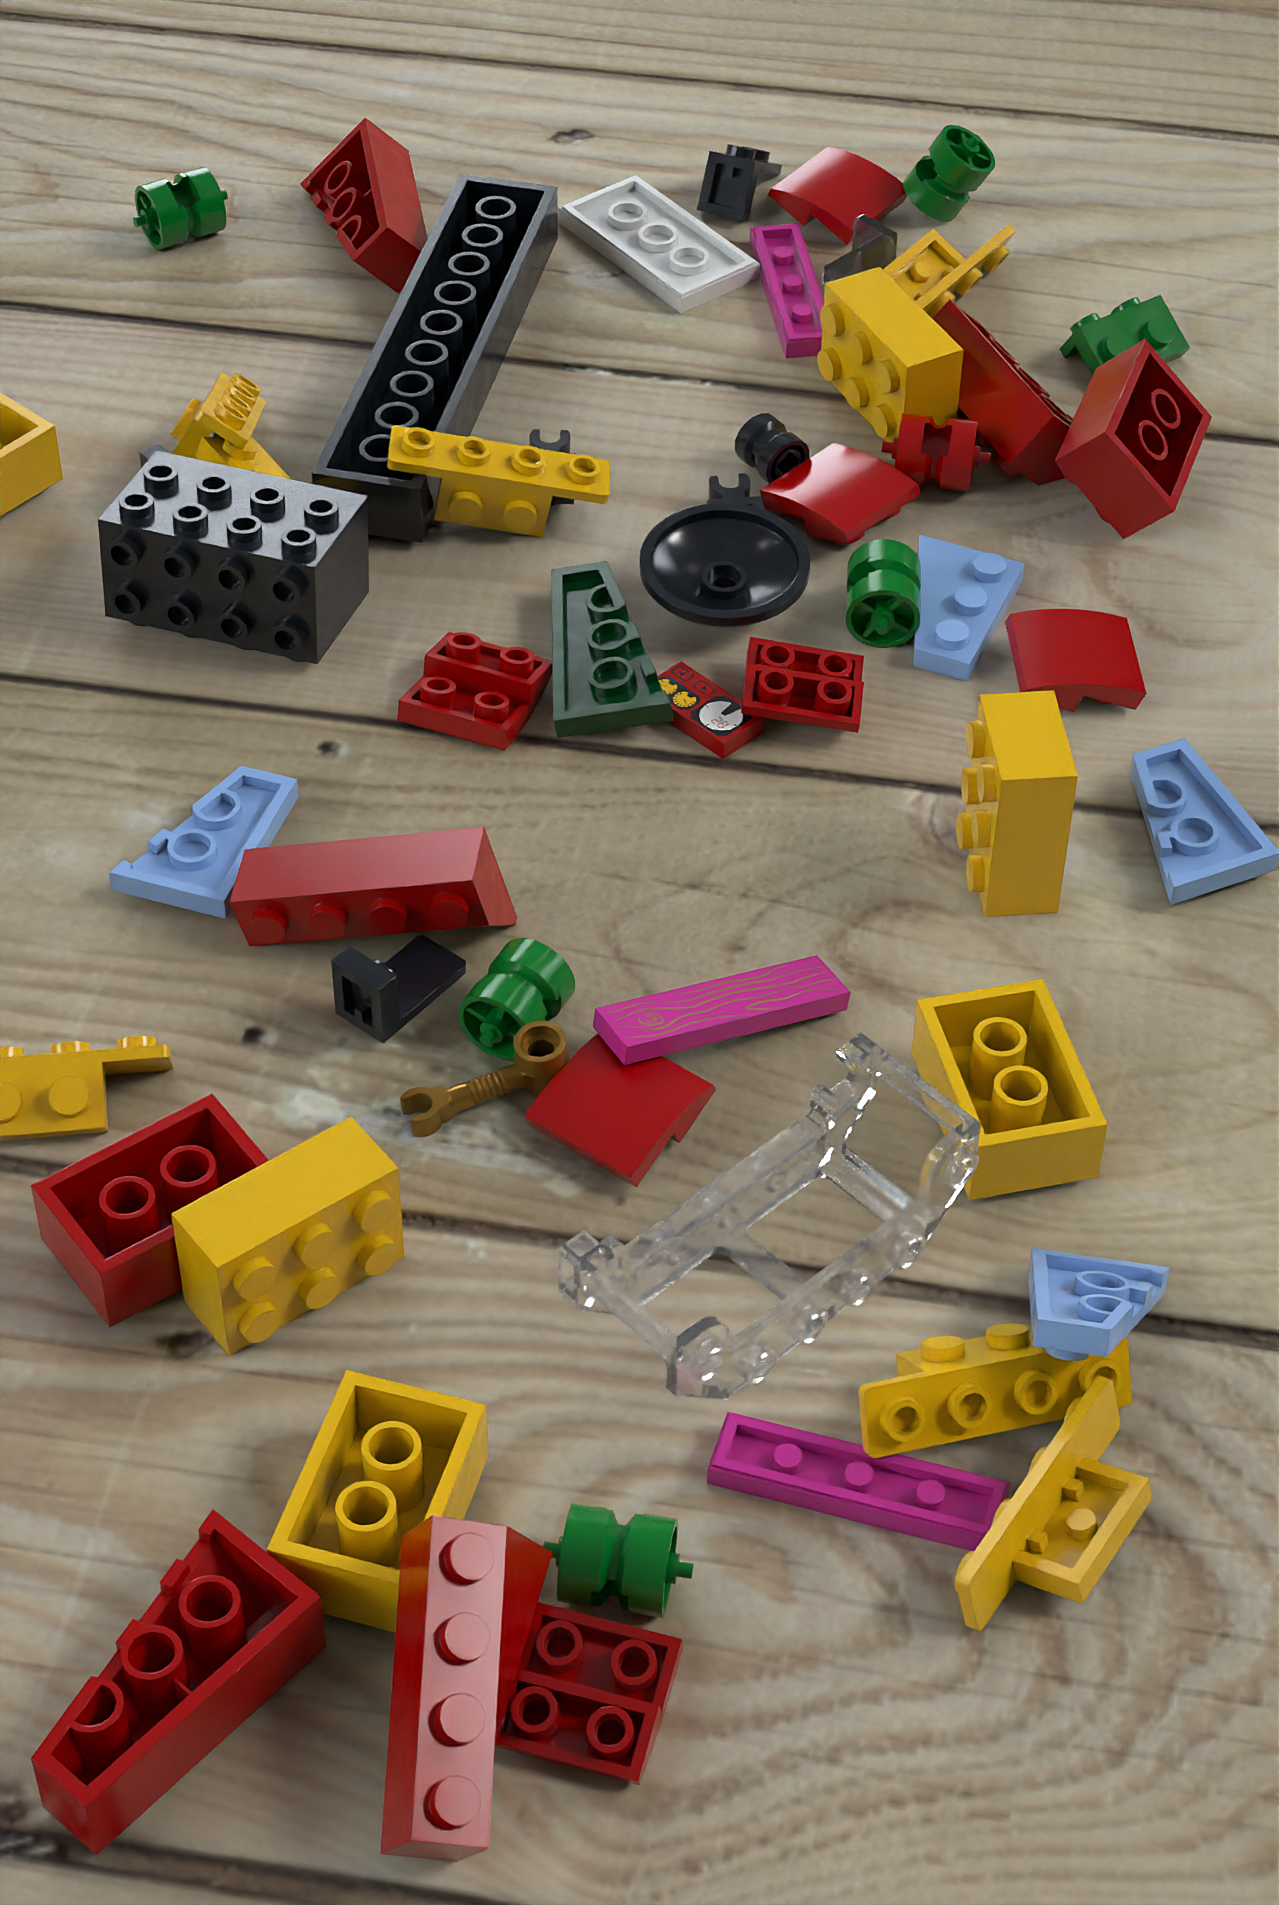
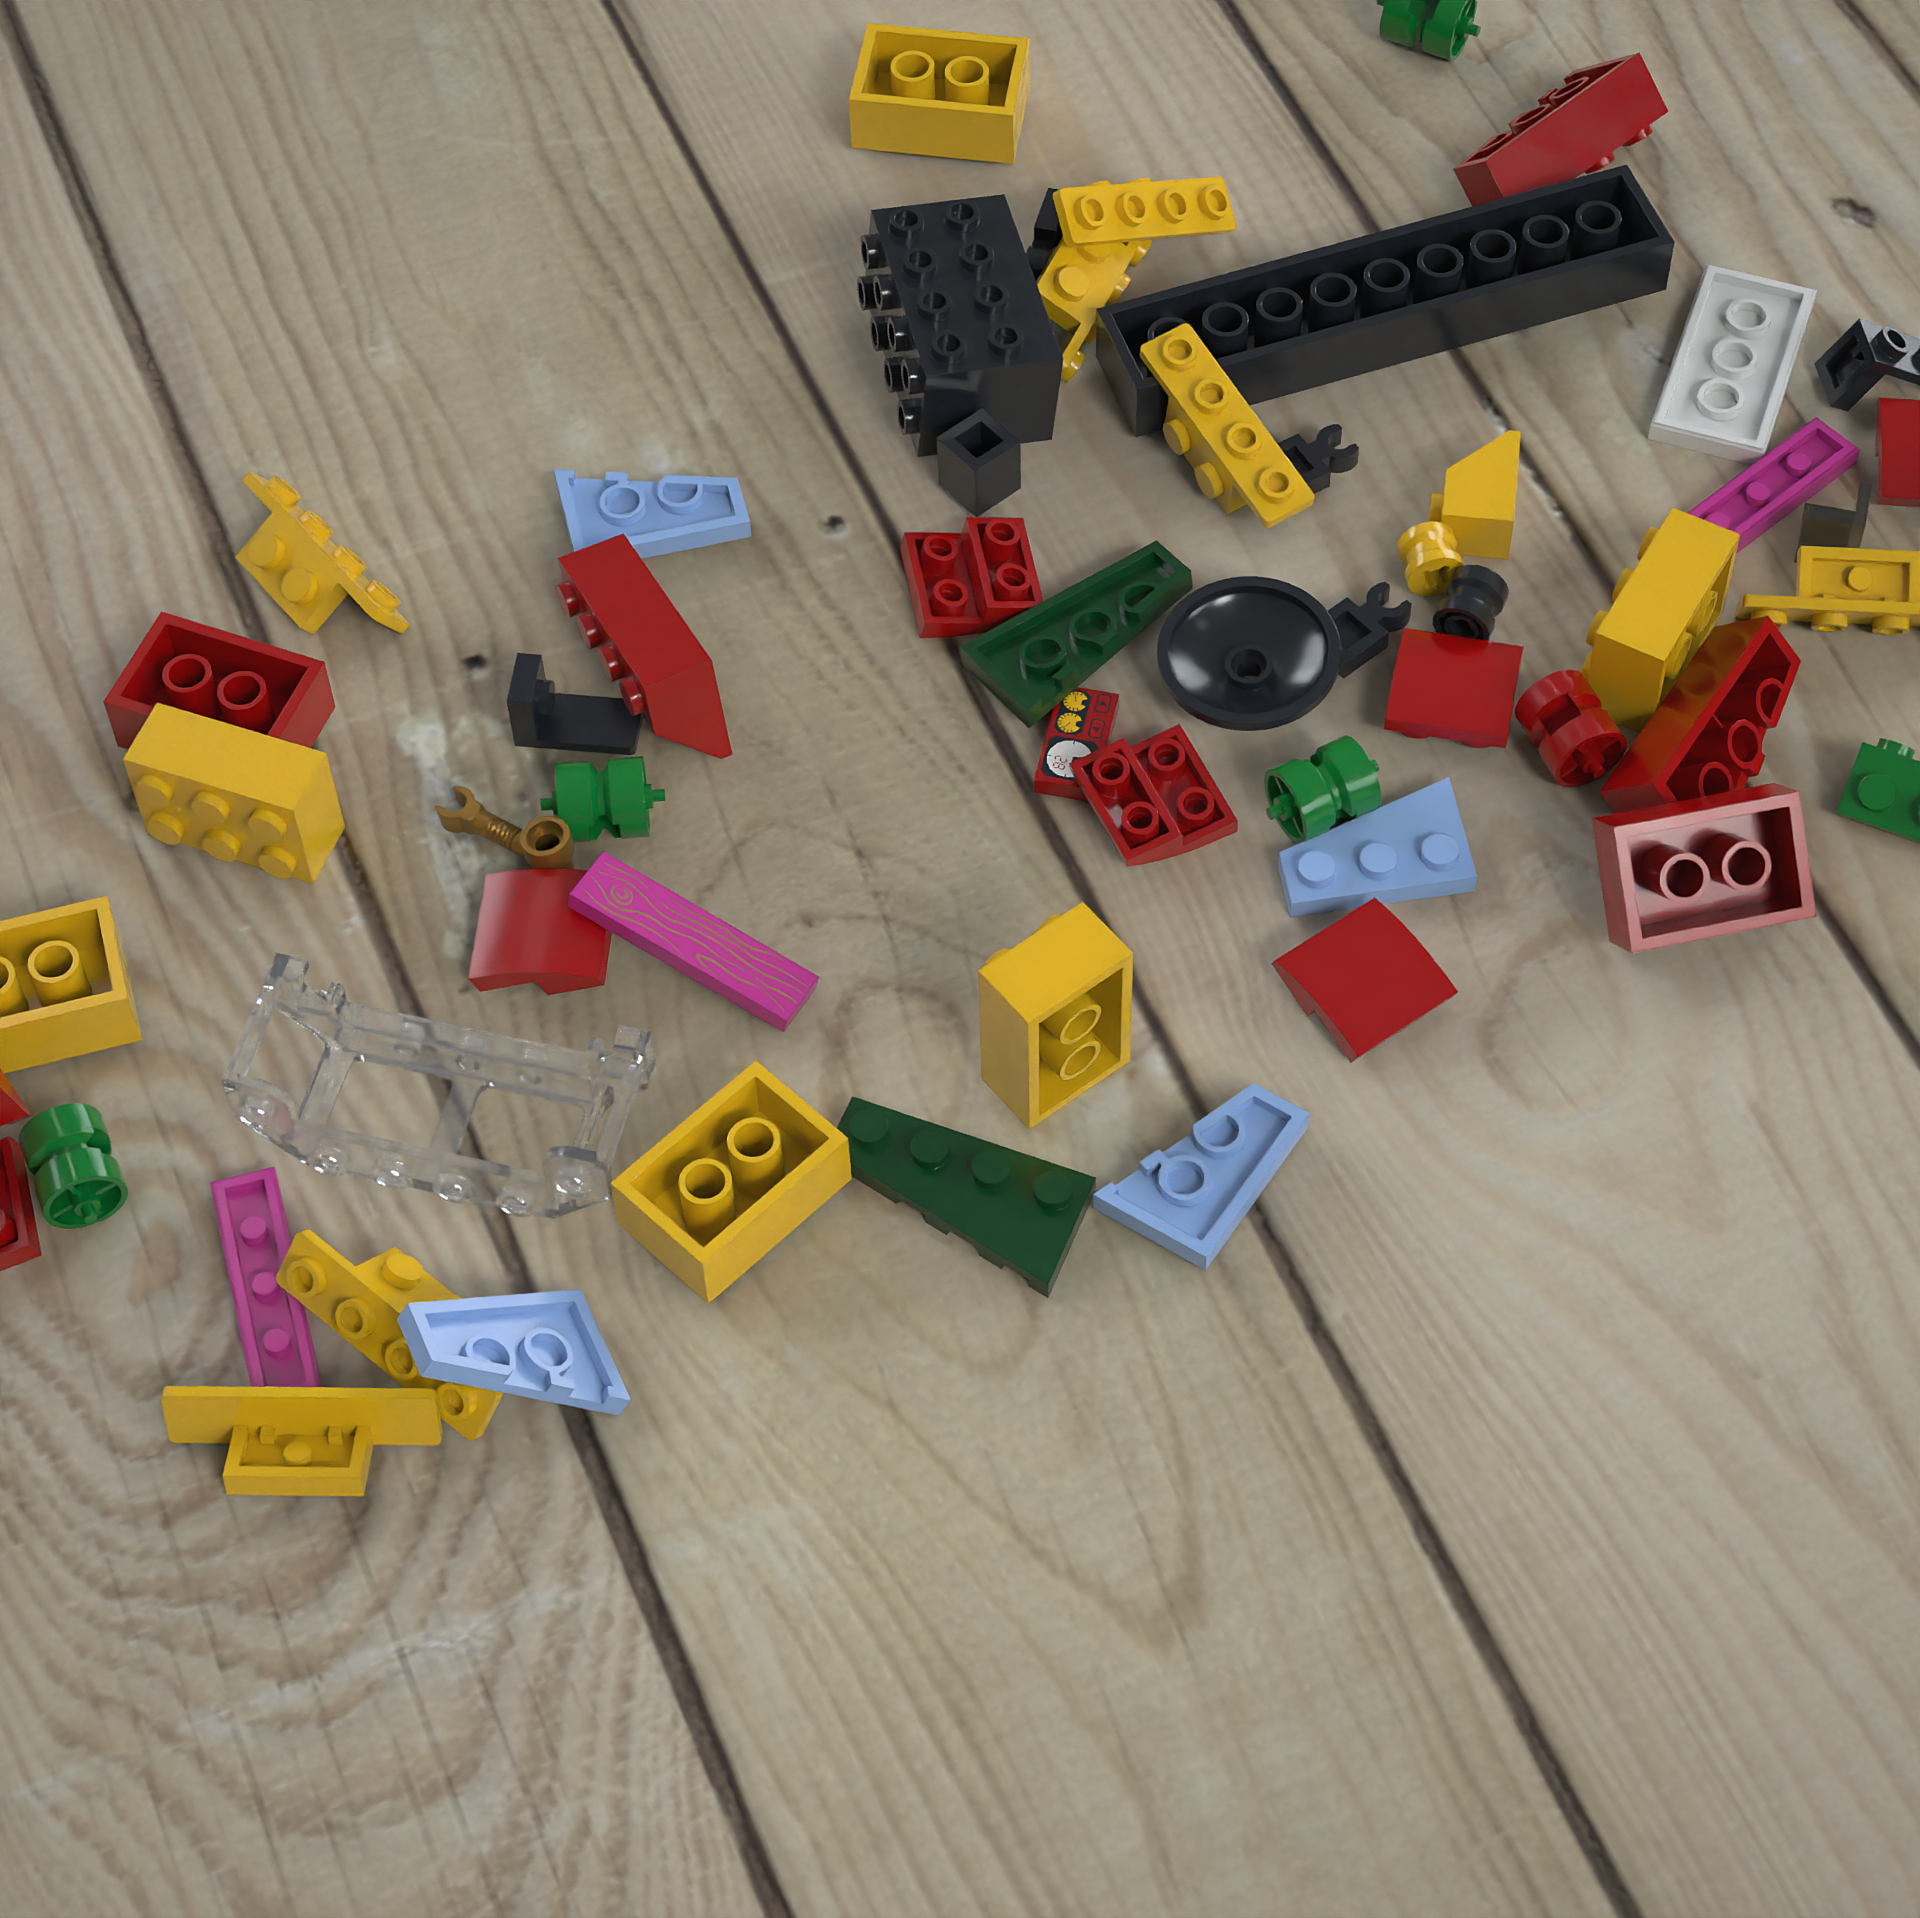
camera: 60 degrees right, 10 degrees up
(381, 619) = (979, 462): none -> black brick
(680, 399) = (1481, 498): none -> yellow slope
(706, 447) = (1429, 557): none -> yellow wheel
(1117, 955) = (993, 1197): none -> dark green wing

